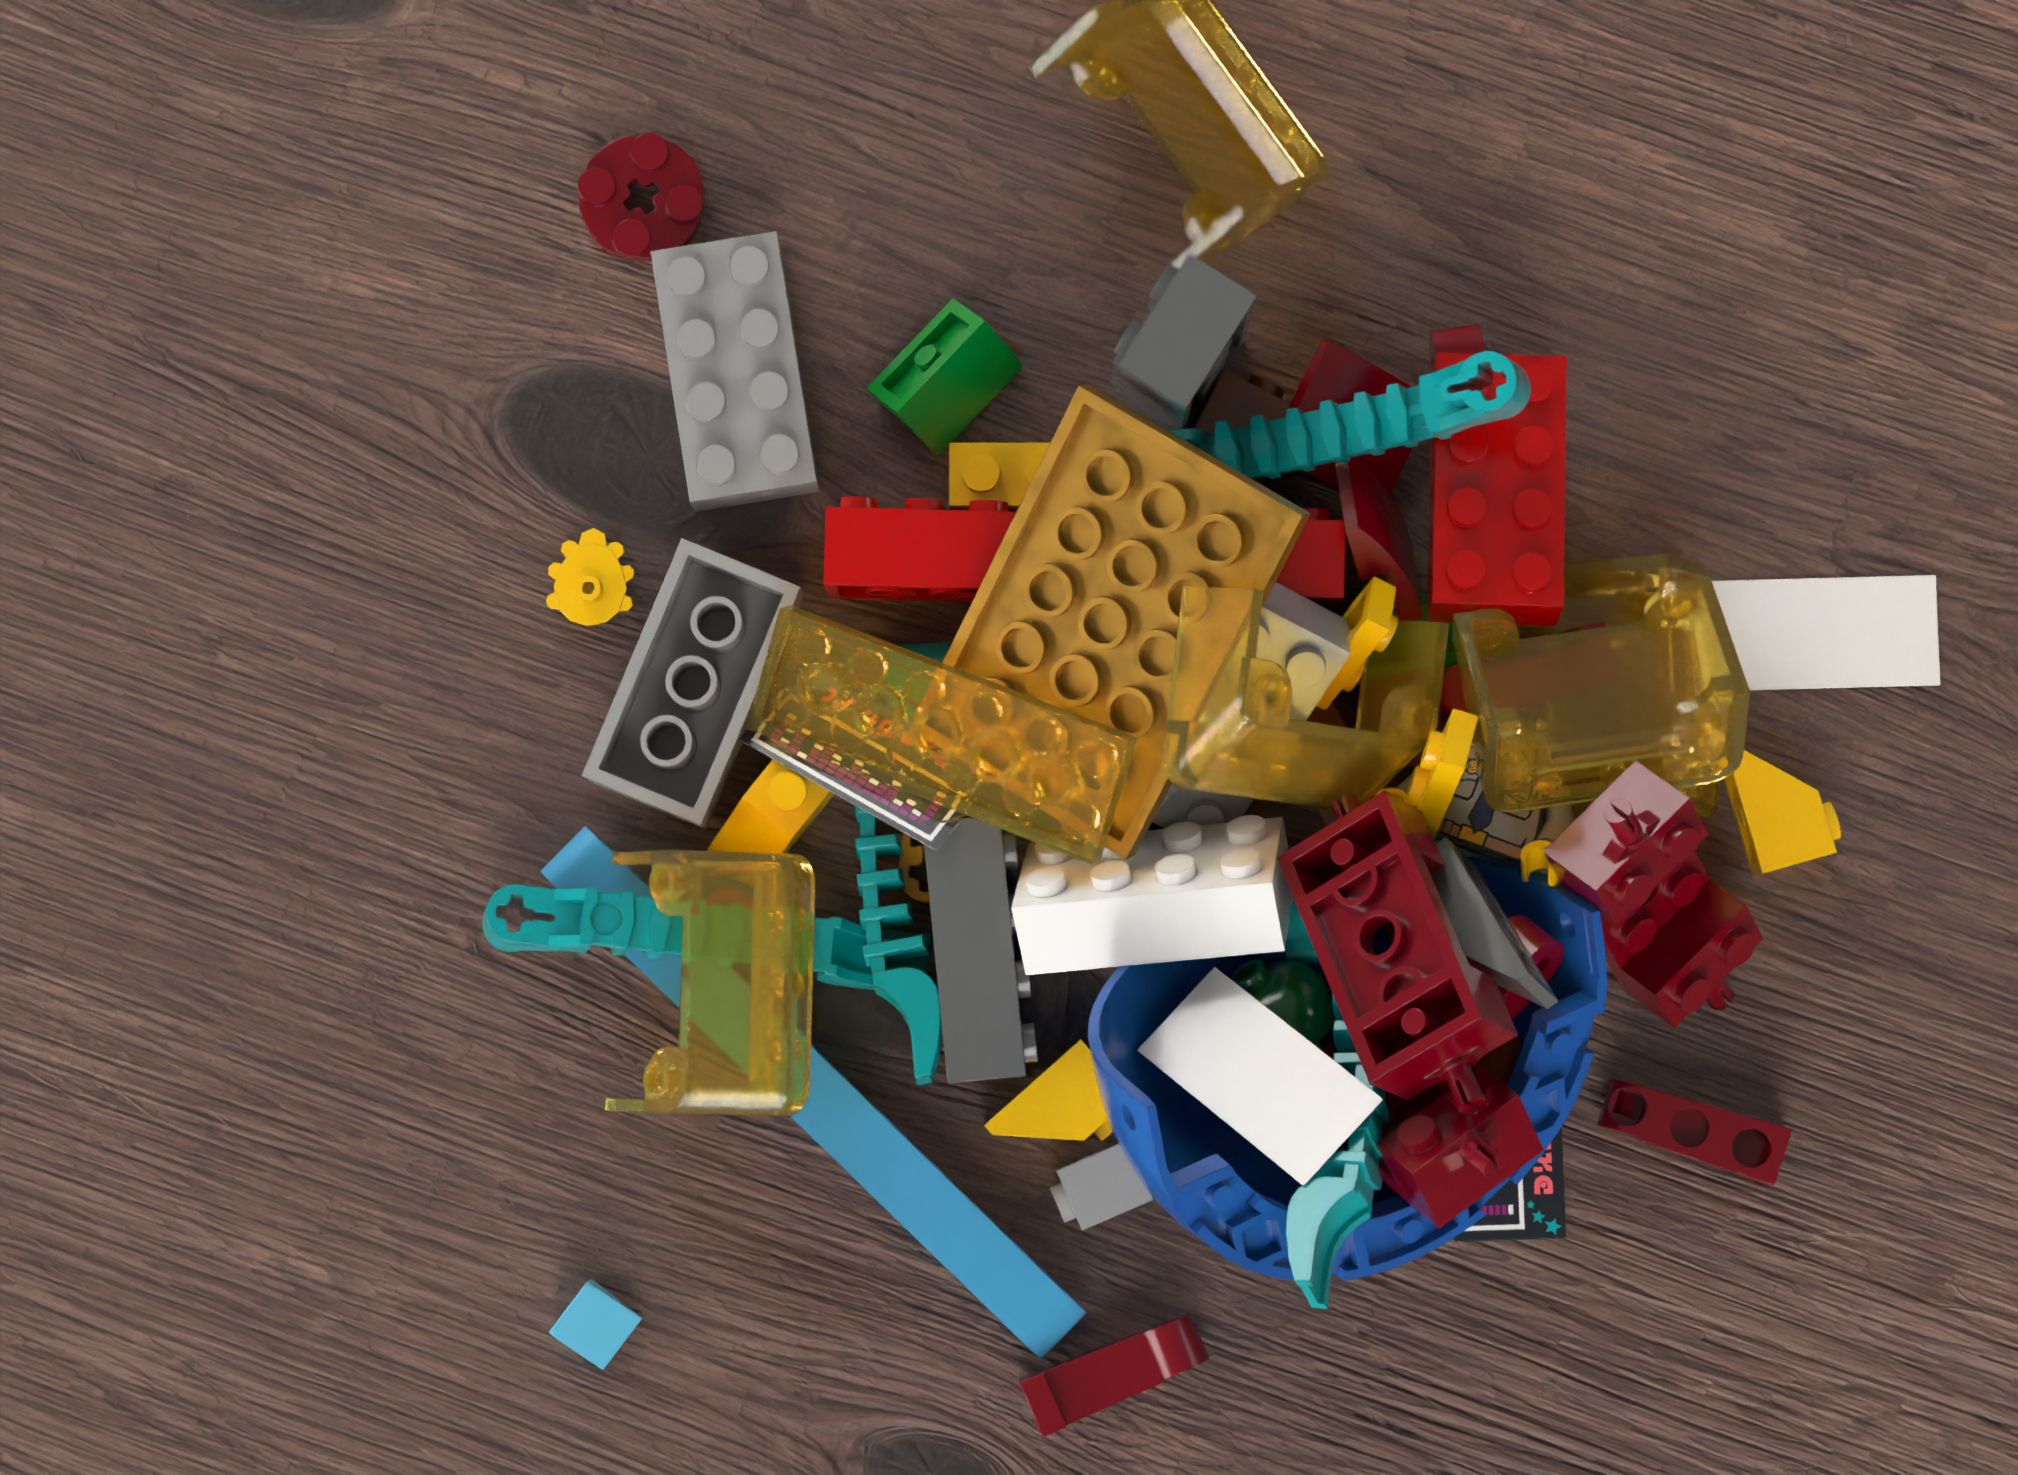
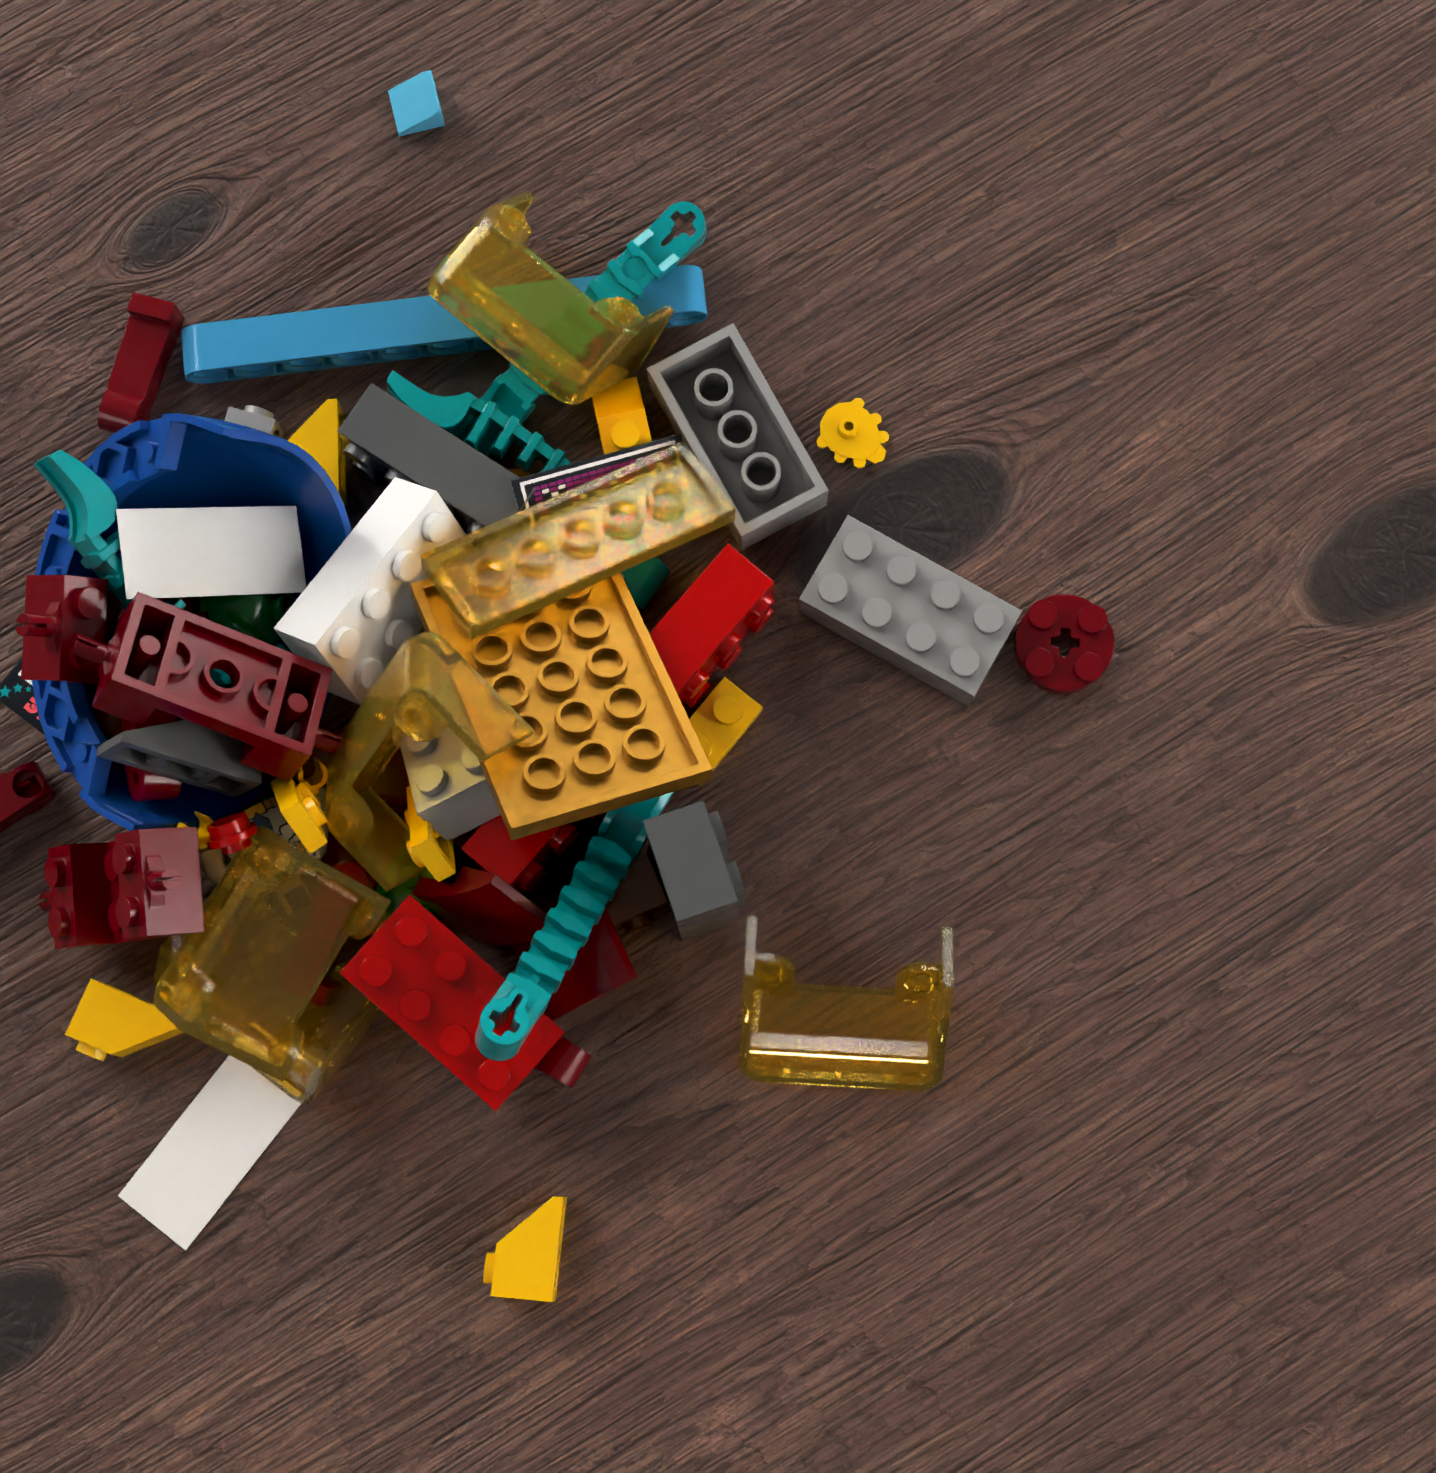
camera: 130 degrees right, 5 degrees down
(945, 376) = (806, 736): green panel -> none
(1518, 820) = (231, 833): none -> red plate
(1667, 234) = (529, 1256): none -> yellow slope

